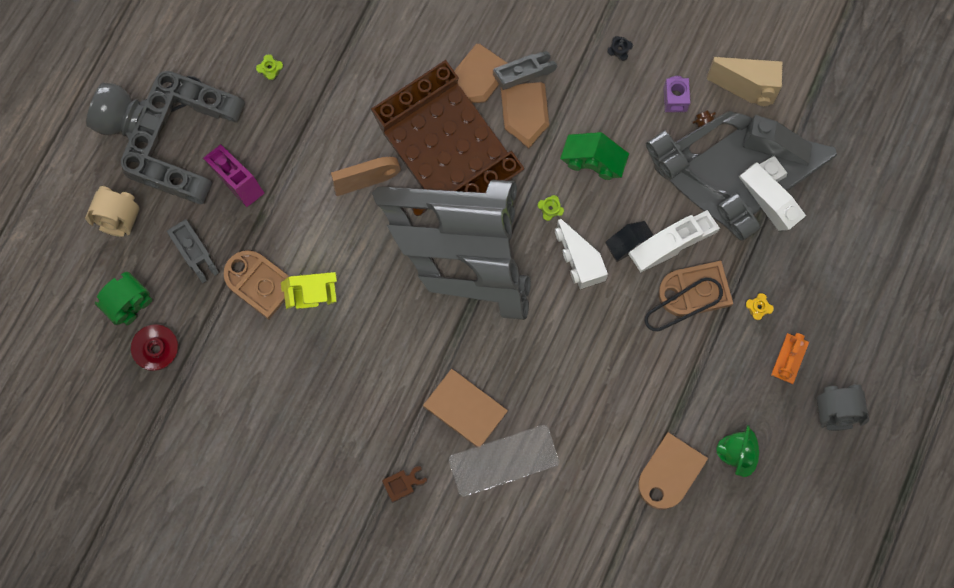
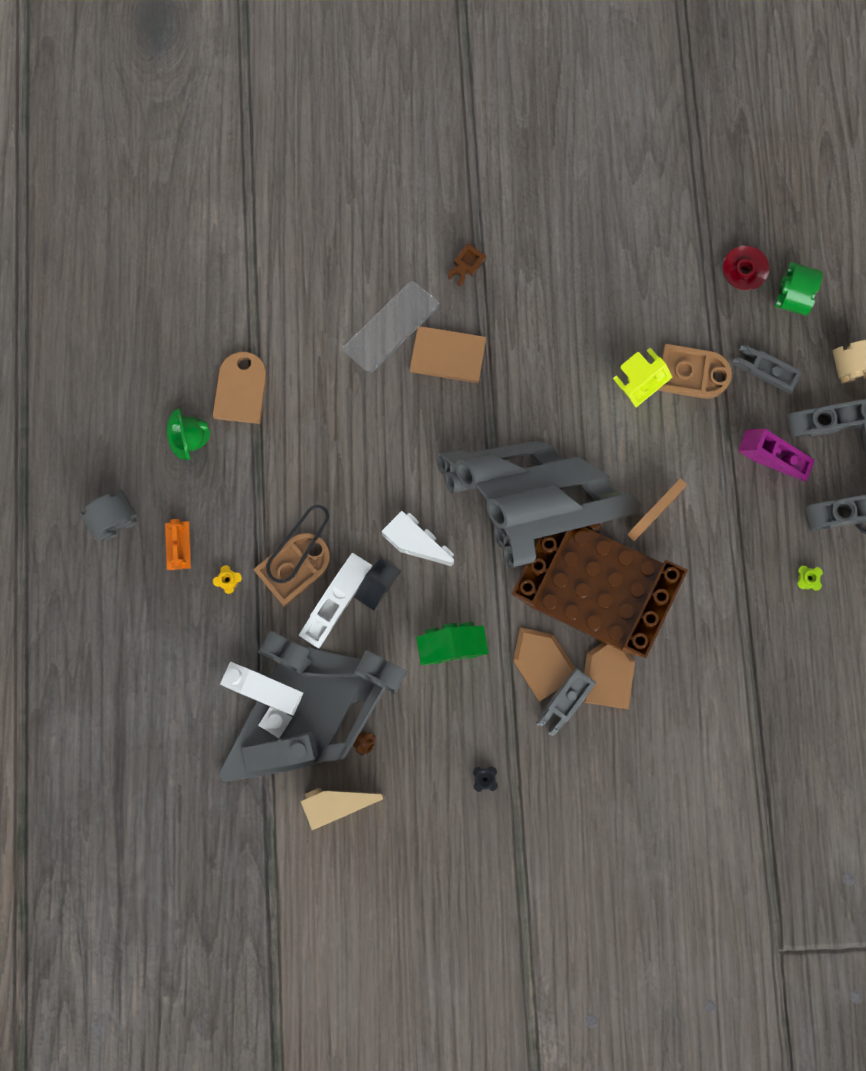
camera: 155 degrees right, 5 degrees up
(545, 204) = (467, 569): lime plate -> none
(676, 103) = (396, 747): medium lavender brick -> none

